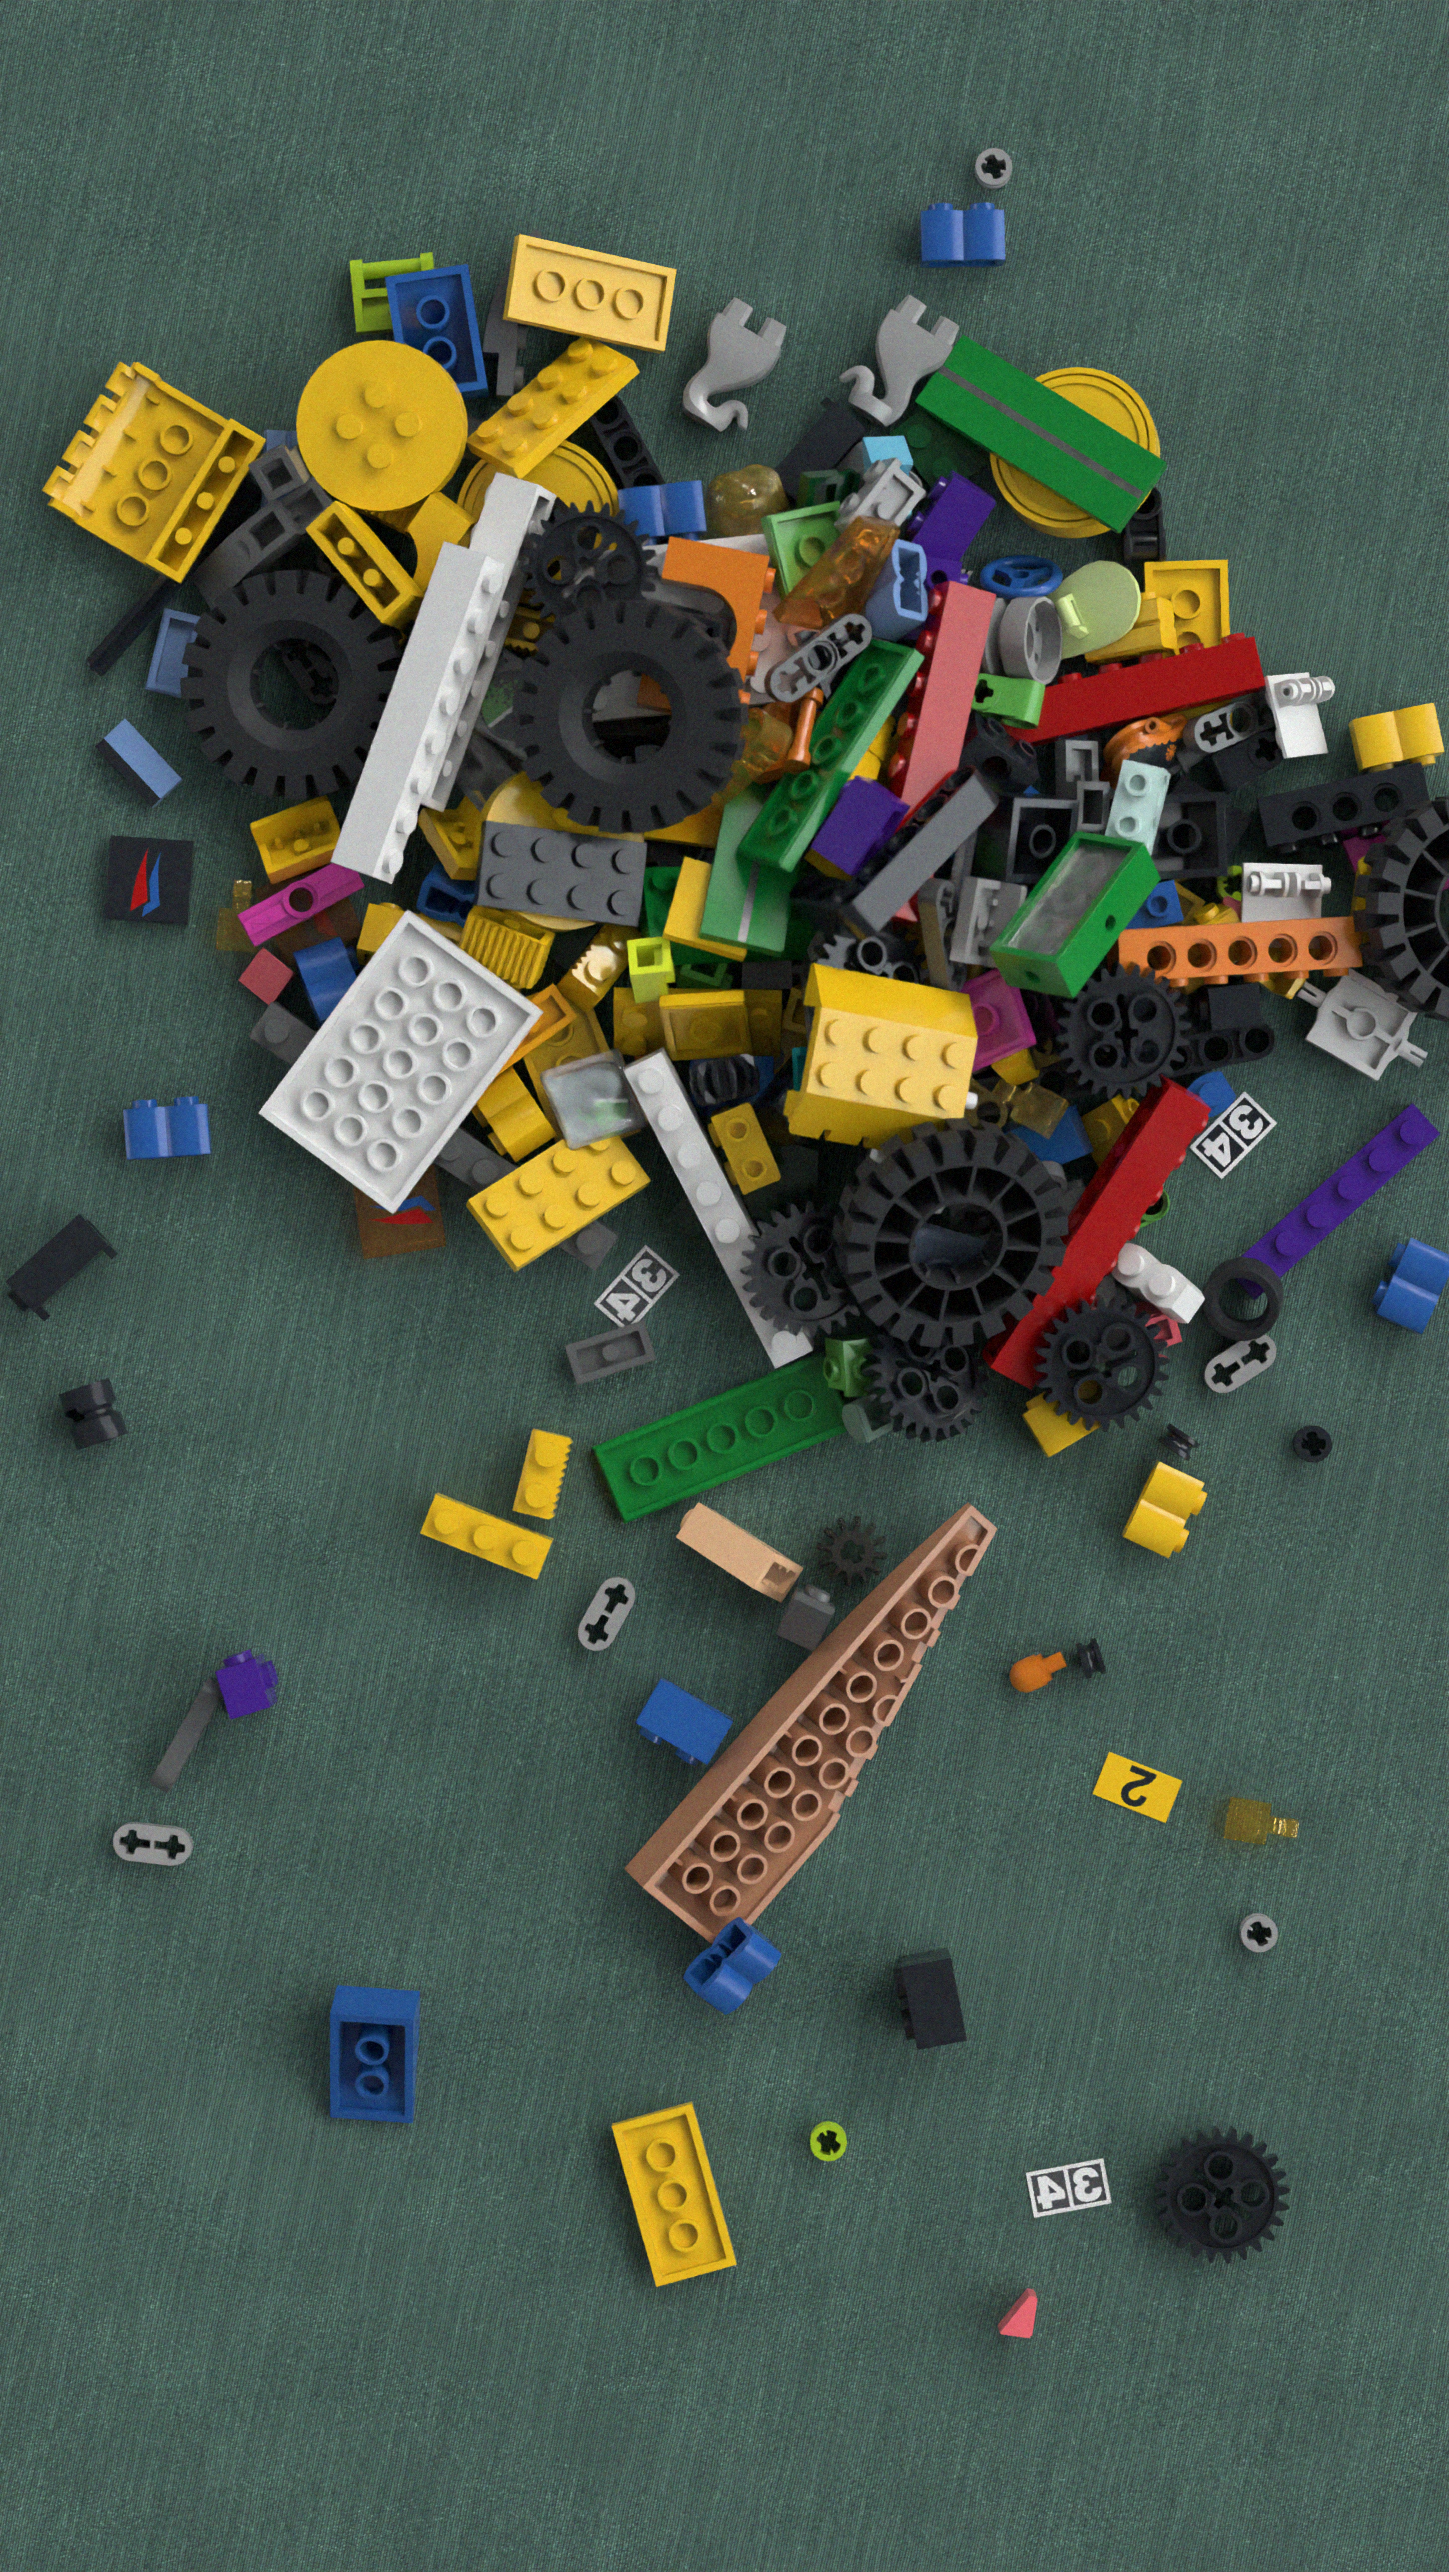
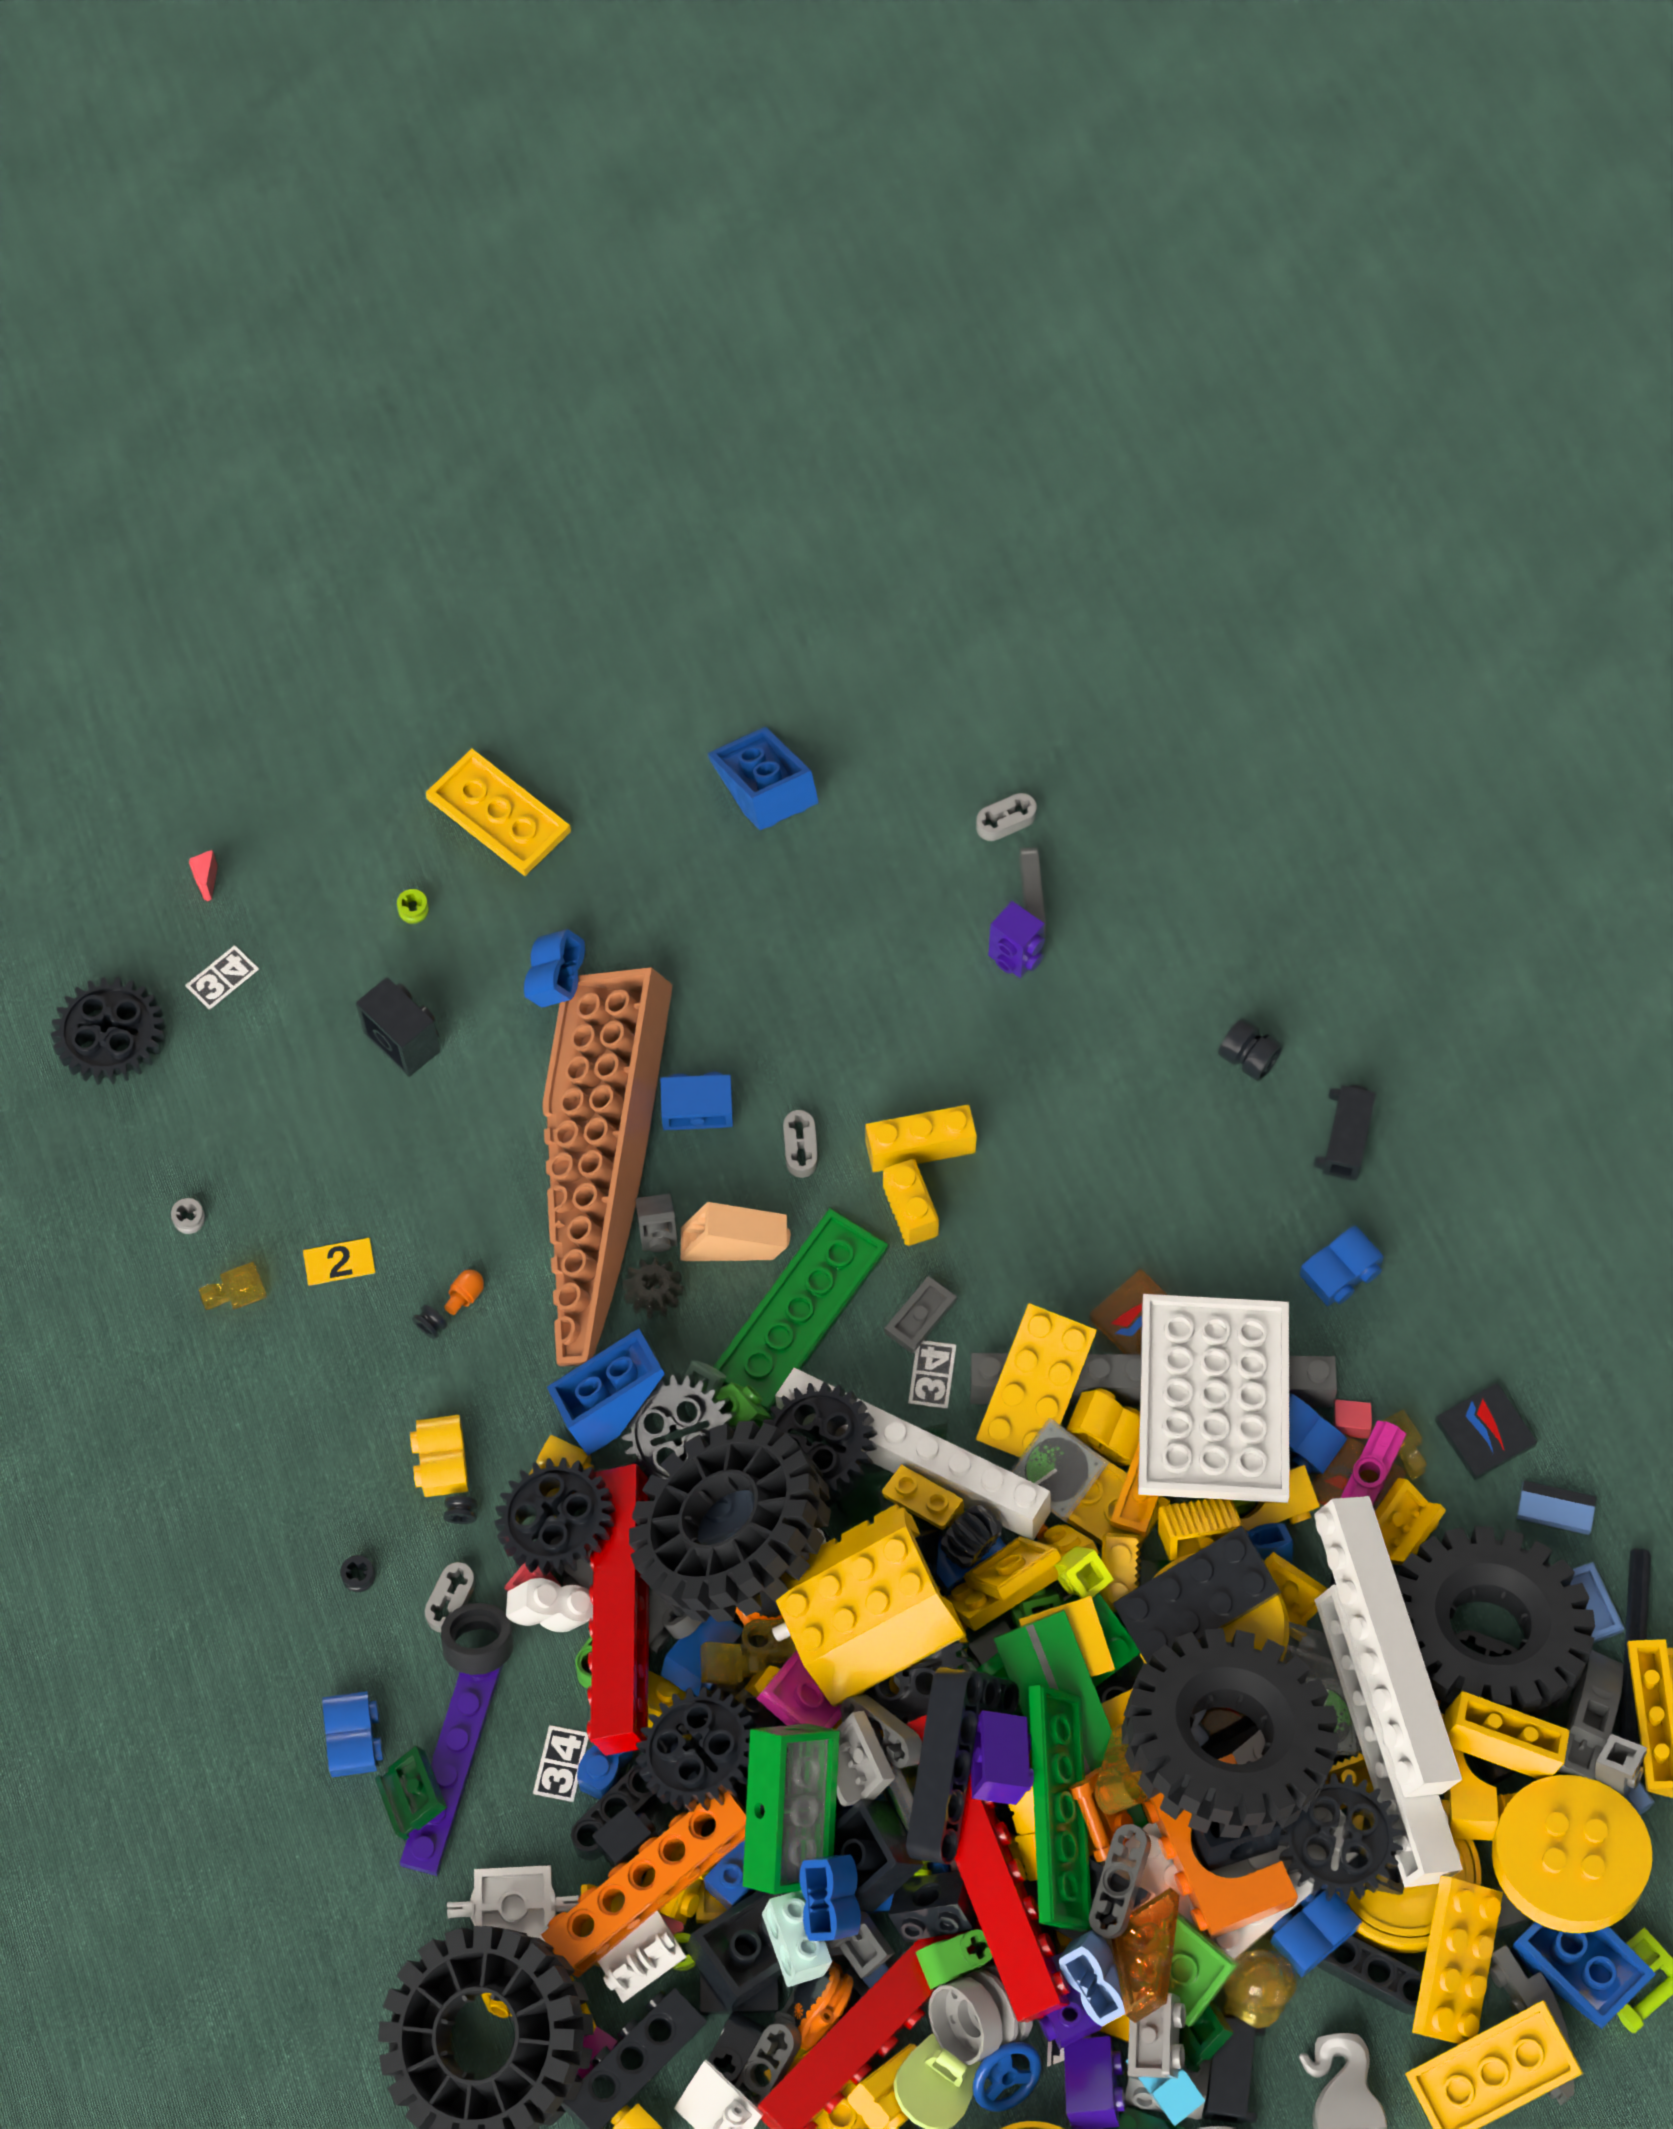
camera: 150 degrees right, 25 degrees down
(972, 1460) = (607, 1391): none -> blue slope
(1092, 810) = (829, 1893): none -> blue brick
(1393, 1188) = (410, 1792): none -> dark green plate

